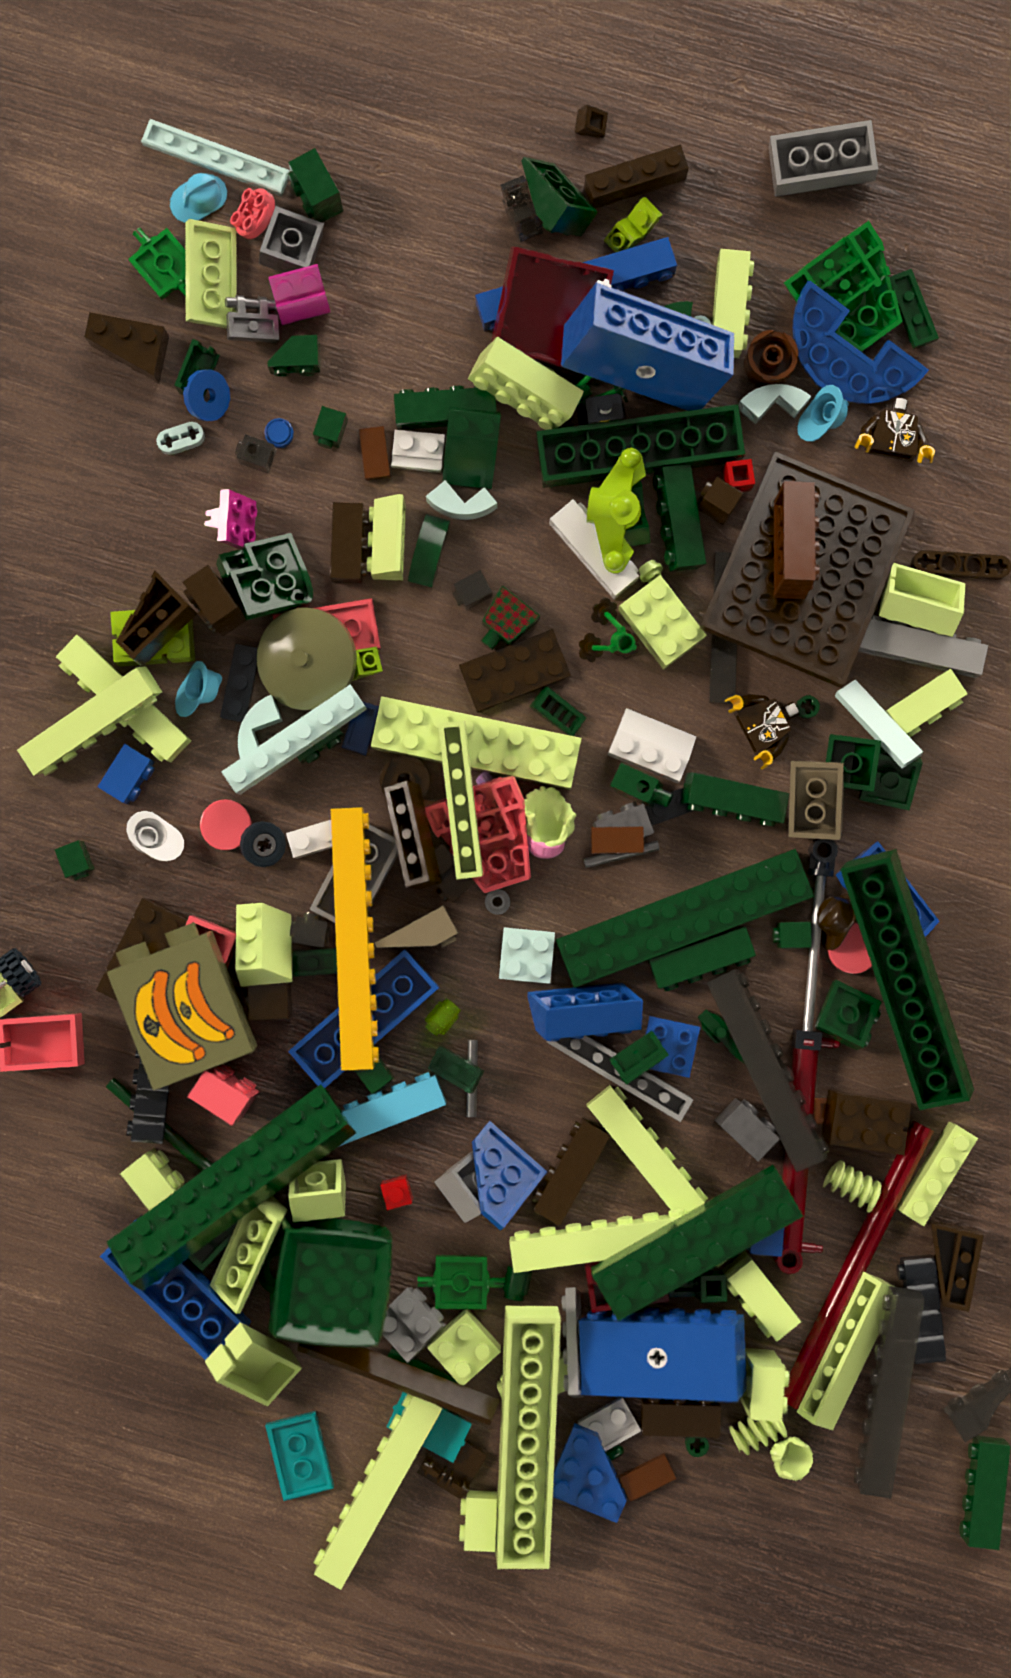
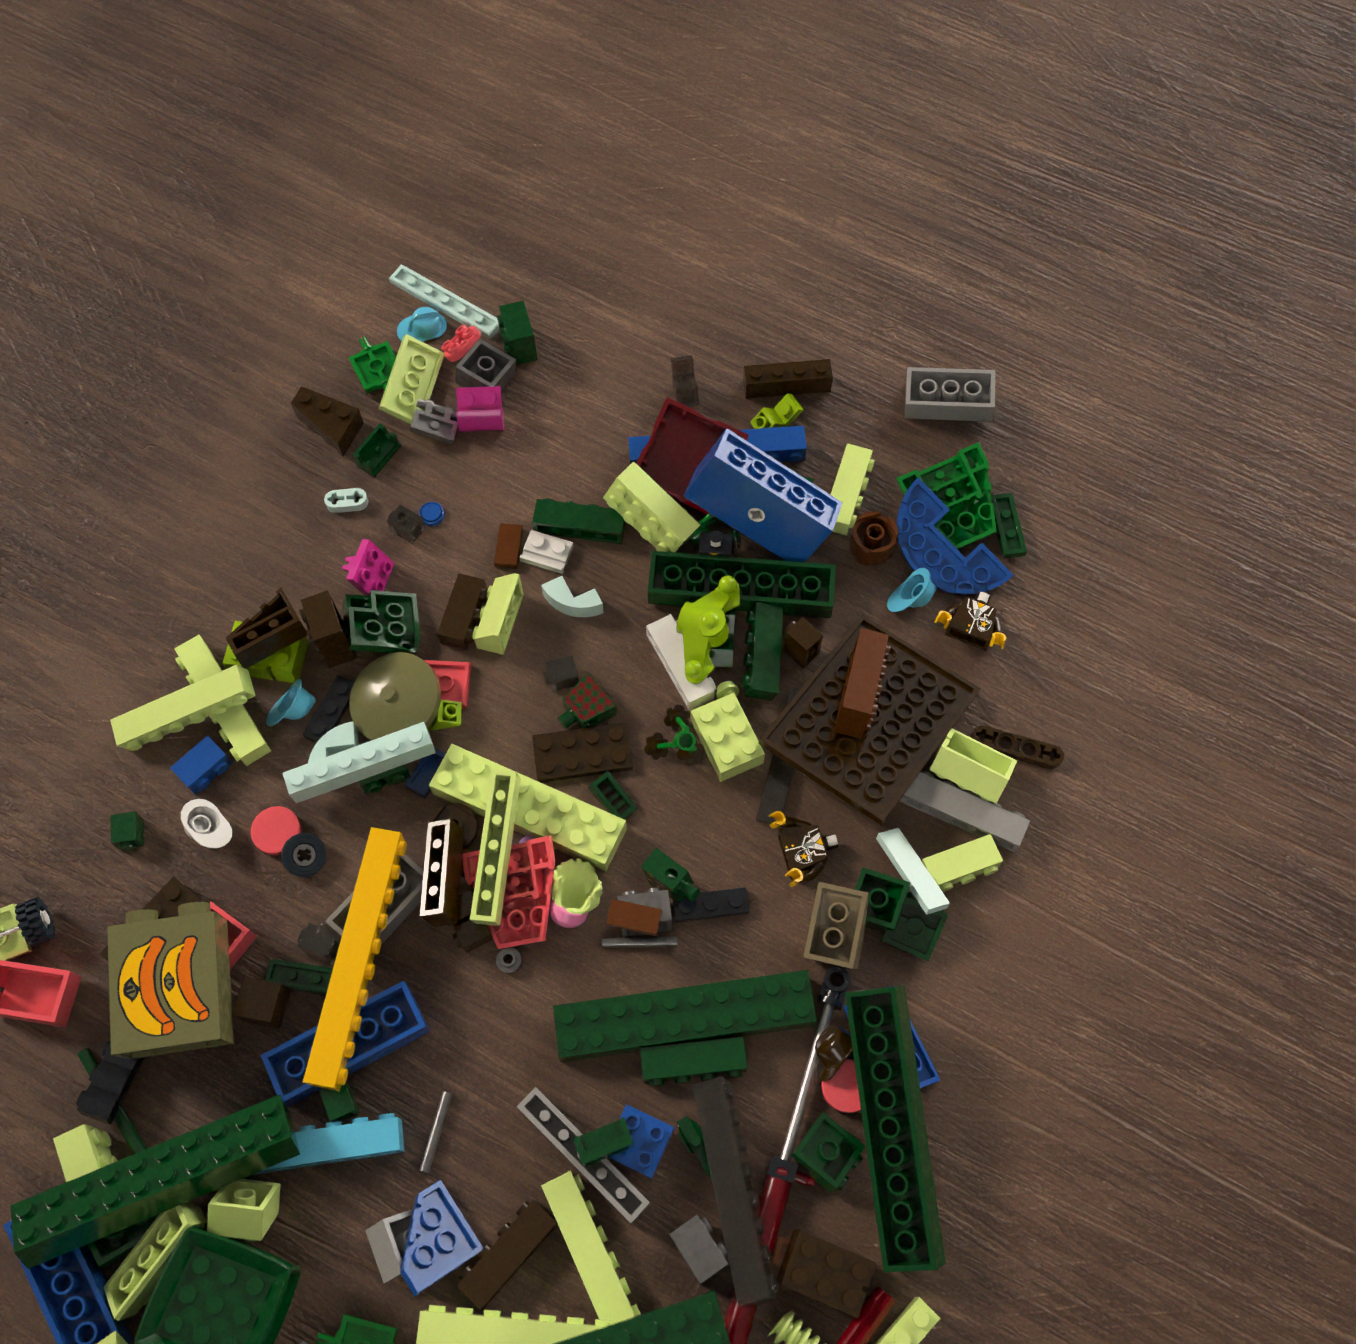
camera: 15 degrees right, 20 degrees down
(218, 390) = (389, 465): blue tile -> none
(224, 1093) = (184, 1082): coral piece -> none
(263, 945) = (269, 946): yellowish green slope -> none
(297, 355) = (464, 456): dark green slope -> none
(310, 839) = (344, 860): white brick -> none
(330, 427) = (475, 516): dark green brick -> none
(397, 1192) = (324, 1232): red brick -> none
(427, 931) = (429, 969): dark tan slope -> none
(428, 550) = (530, 632): dark green brick -> none
(442, 1017) = (423, 1061): clear neon green brick -> none
(456, 1069) = (421, 1117): clear green plate -> none
(471, 447) = (591, 553): dark green slope -> none
(526, 955) = (522, 1017): light aqua brick -> none
(557, 199) = (716, 380): dark green slope -> none
(585, 1011) = (562, 1084): blue slope -> none
(591, 121) = (760, 334): dark brown slope -> none
(652, 746) = (692, 846): white slope -> none
(734, 798) = (760, 910): dark green brick -> none
(740, 474) = (826, 623): red brick -> none
(761, 399) = (860, 569): light aqua brick -> none
(792, 935) = (789, 1058): dark green brick -> none
(813, 702) = (855, 841): dark green bush -> none

